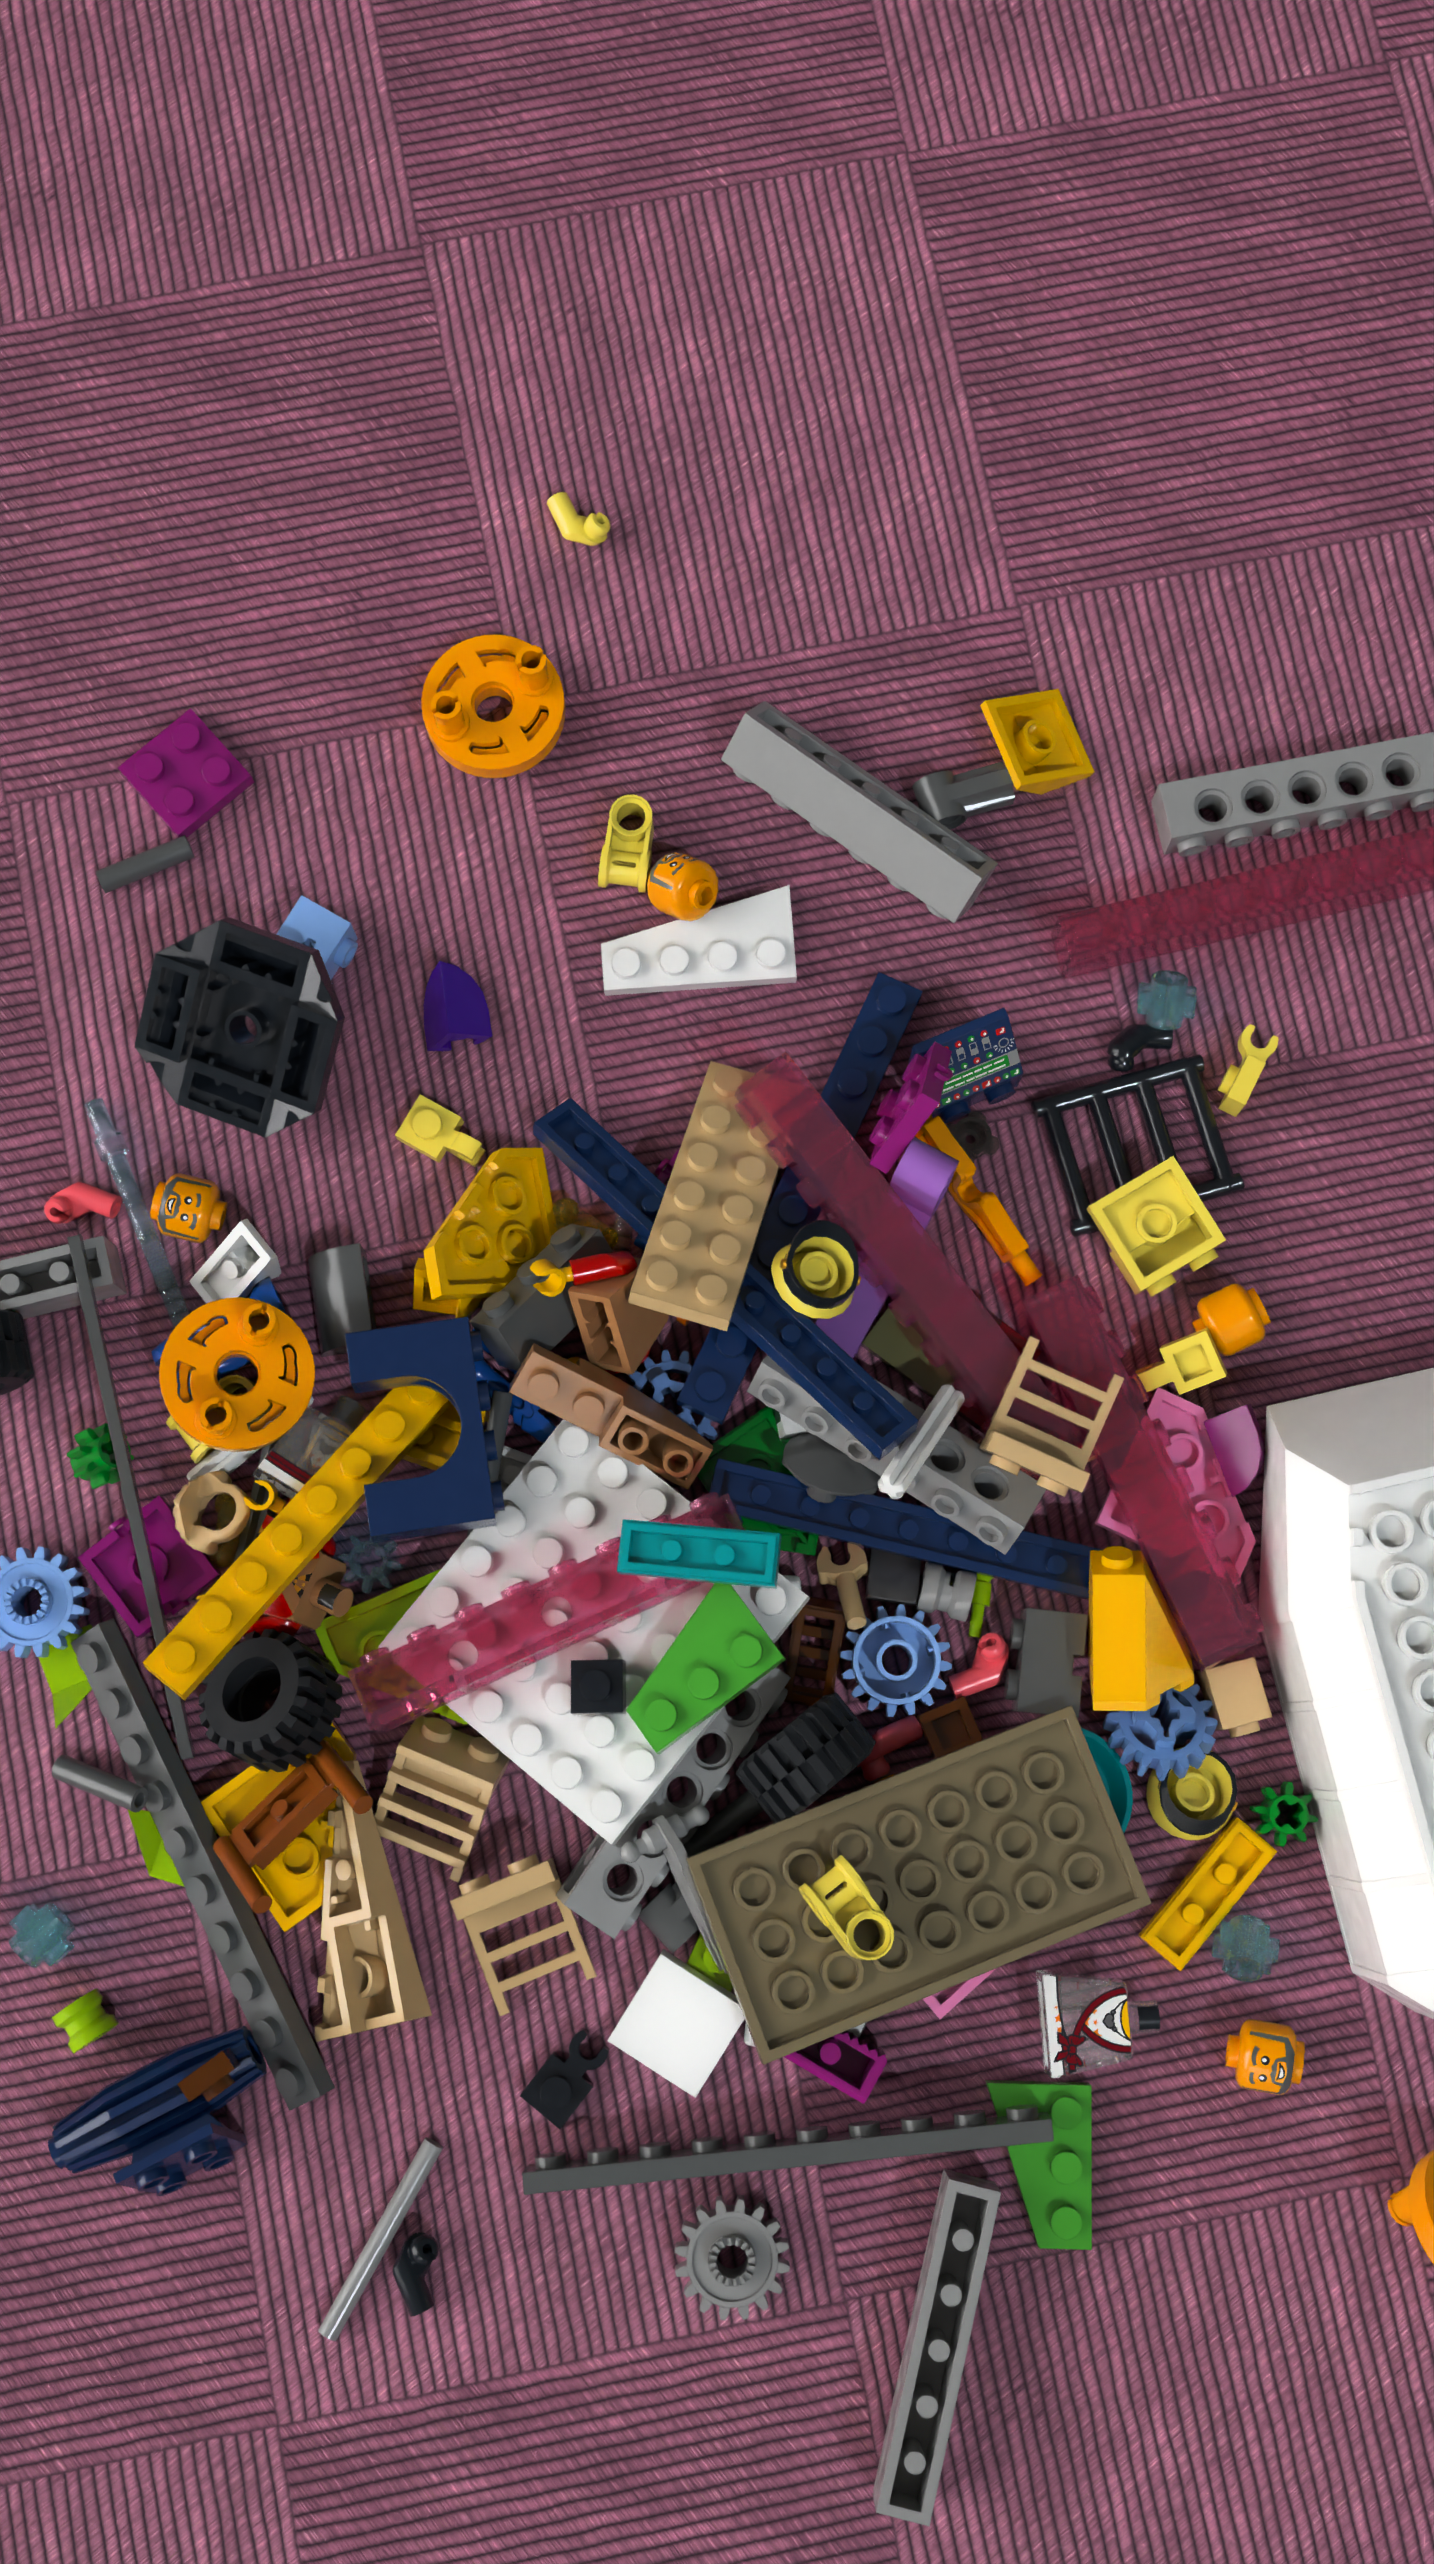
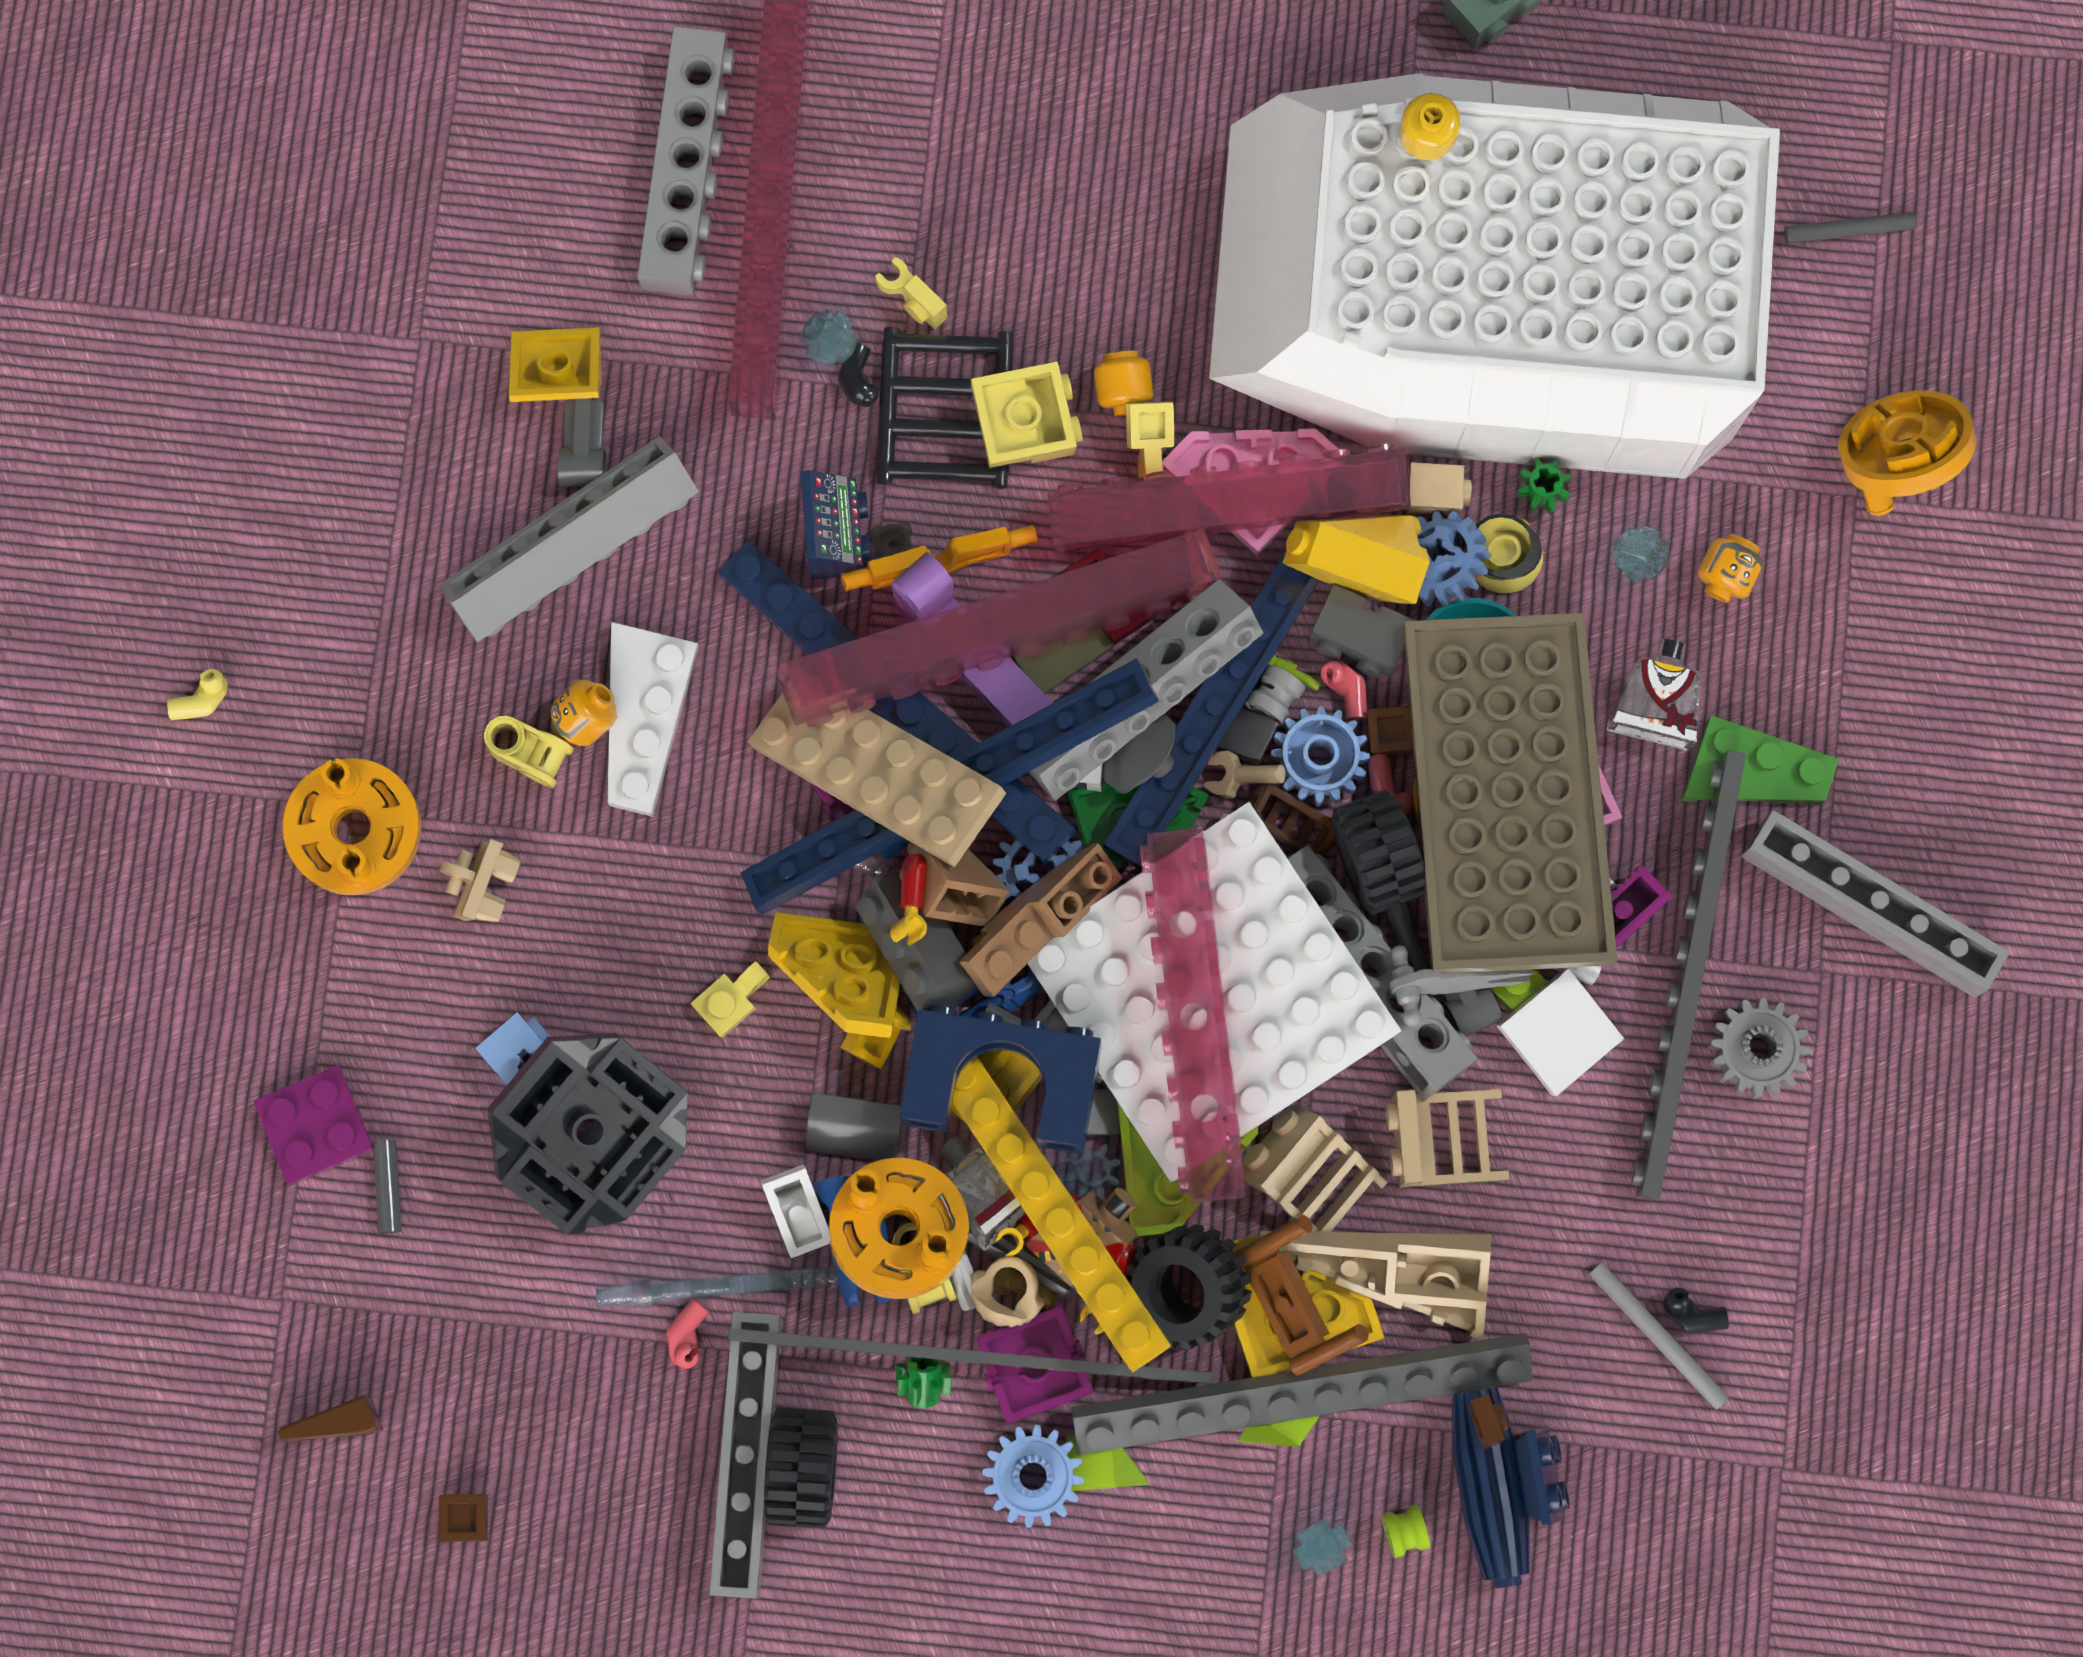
camera: 75 degrees left, 0 degrees up
(100, 1783) = (1209, 1460): dark grey piece -> none
(188, 1208) = (726, 1237): light orange head -> none
(433, 1551) = (1103, 1114): none -> flat silver slope
(454, 1009) = (622, 950): dark purple brick -> none
(455, 850) = (488, 863): none -> tan hips
(560, 2083) = (1580, 1148): black plate -> none
(567, 1212) = (844, 907): clear yellow arm -> none
(598, 1687) = (1269, 998): black plate -> none
(699, 1553) = (1190, 872): teal tile -> none
(704, 1668) = (1282, 903): bright green wing -> none
(817, 1270) = (976, 703): light yellow piece -> none
(847, 1908) = (1509, 854): light yellow piece -> none
(910, 1107) = (862, 577): magenta plate -> none
(921, 1443) = (1159, 672): white axle -> none
(1022, 1446) = (1183, 582): tan plate -> none
(1207, 1893) = (1587, 570): yellow tile -> none
(1238, 1446) = (1233, 414): magenta brick -> none

